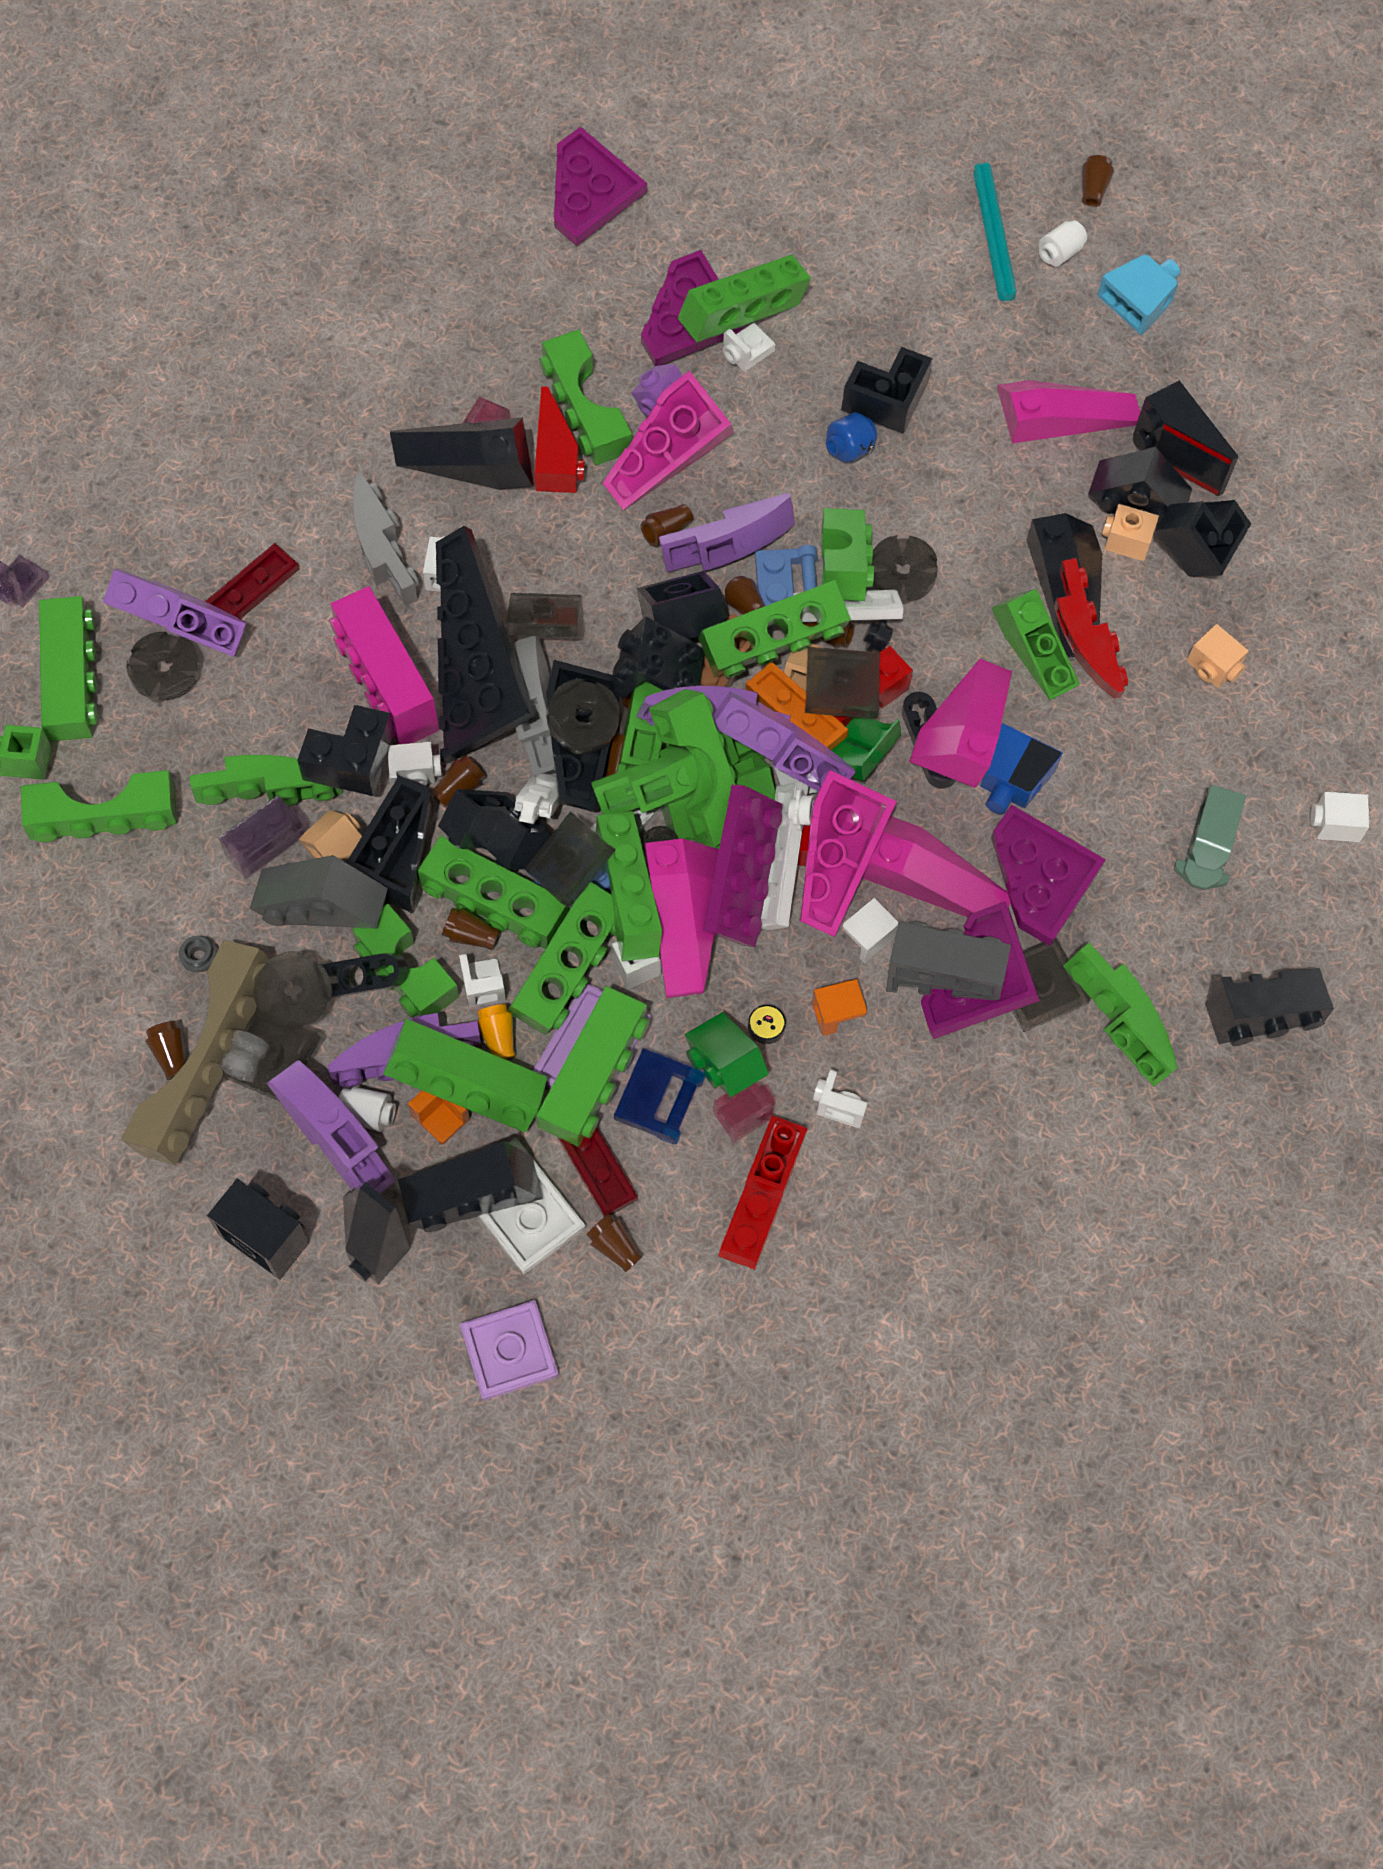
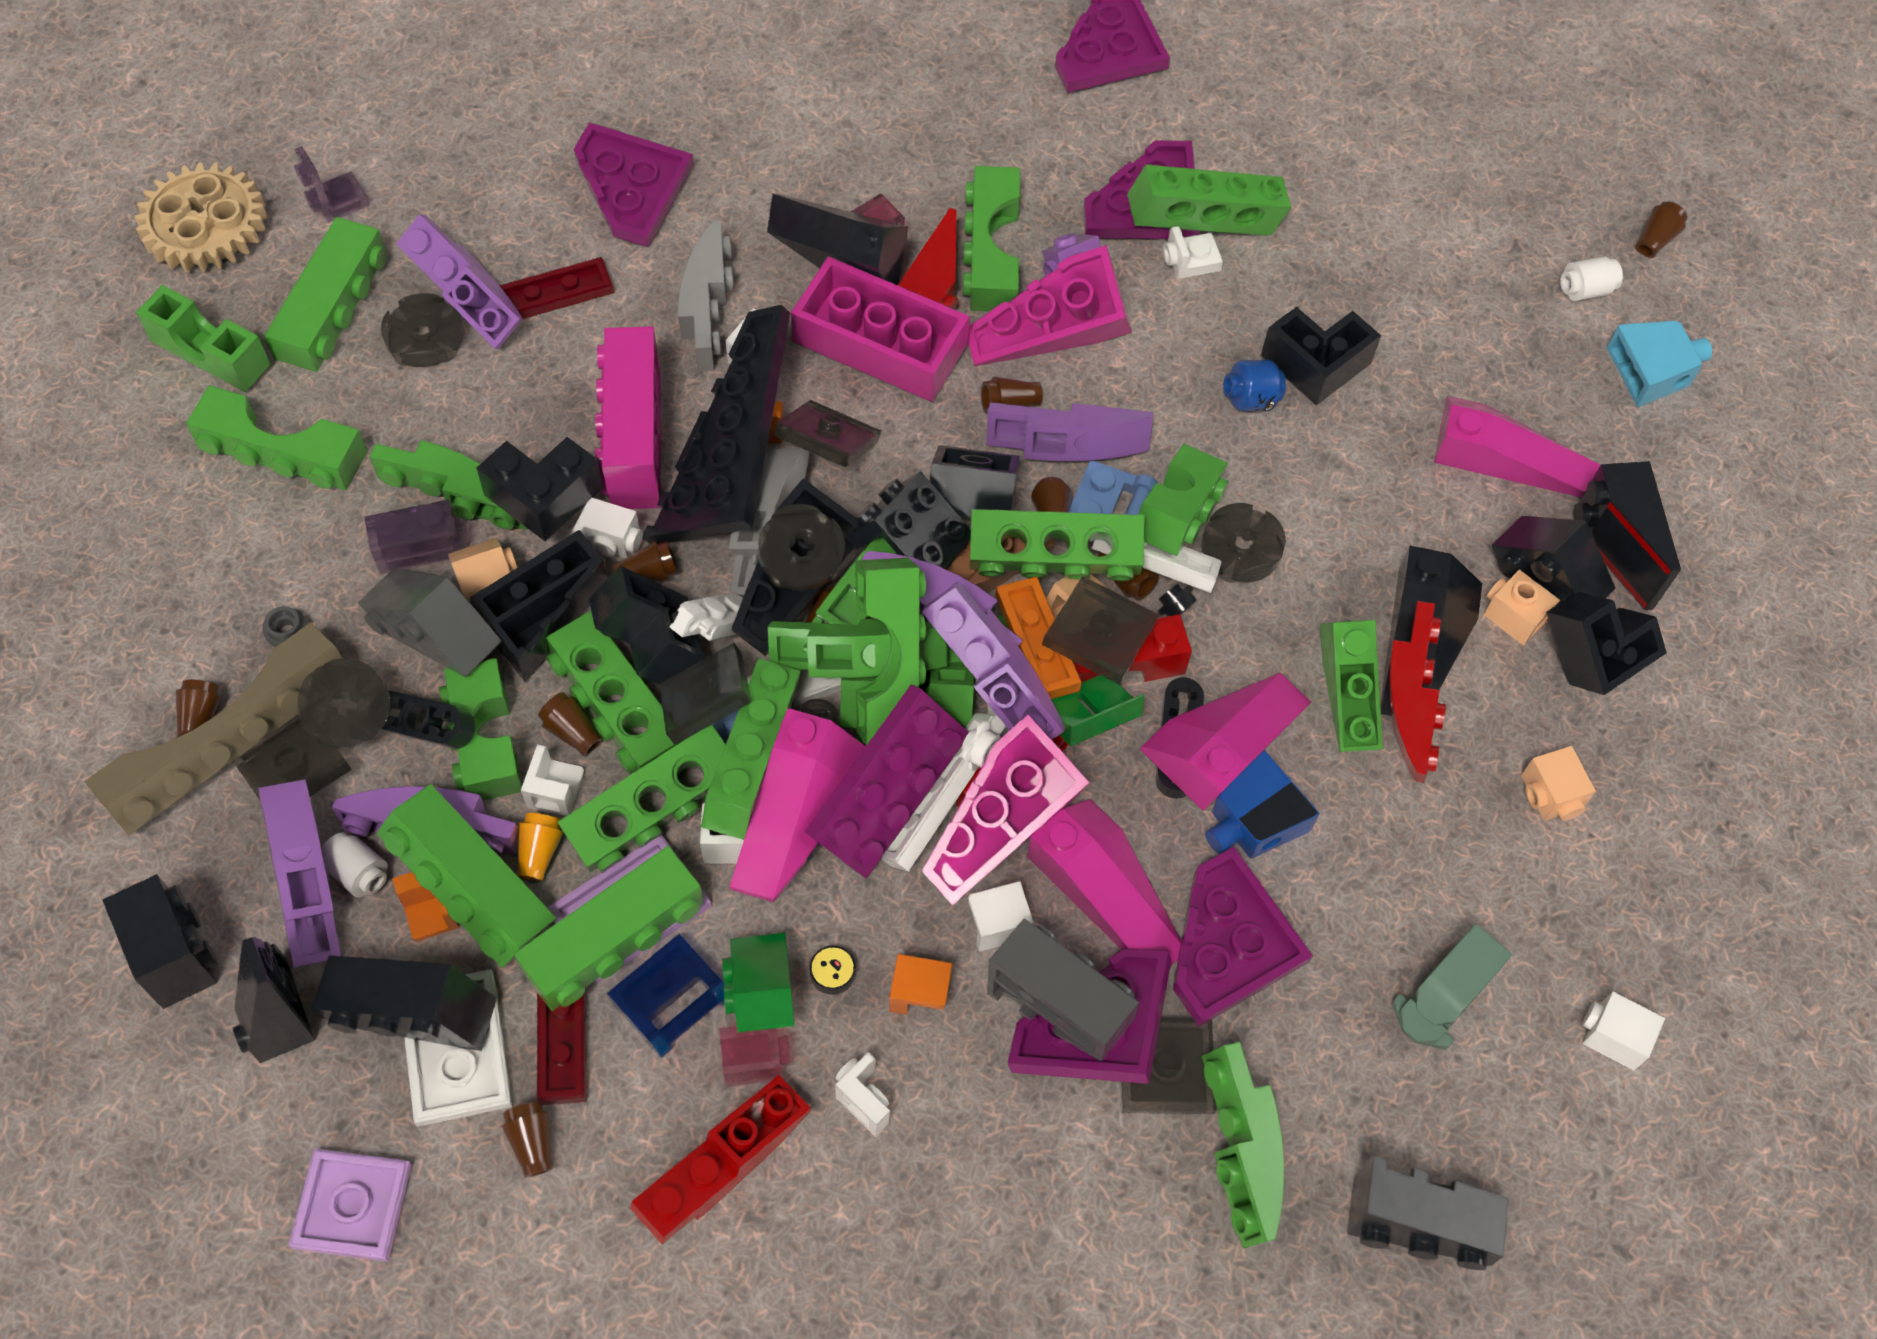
camera: 25 degrees right, 5 degrees down
(244, 1056) = (247, 757): clear wheel -> none
(260, 466) = (631, 180): none -> magenta plate
(539, 511) = (880, 328): none -> dark pink brick
(994, 232) = (1521, 241): teal axle -> none

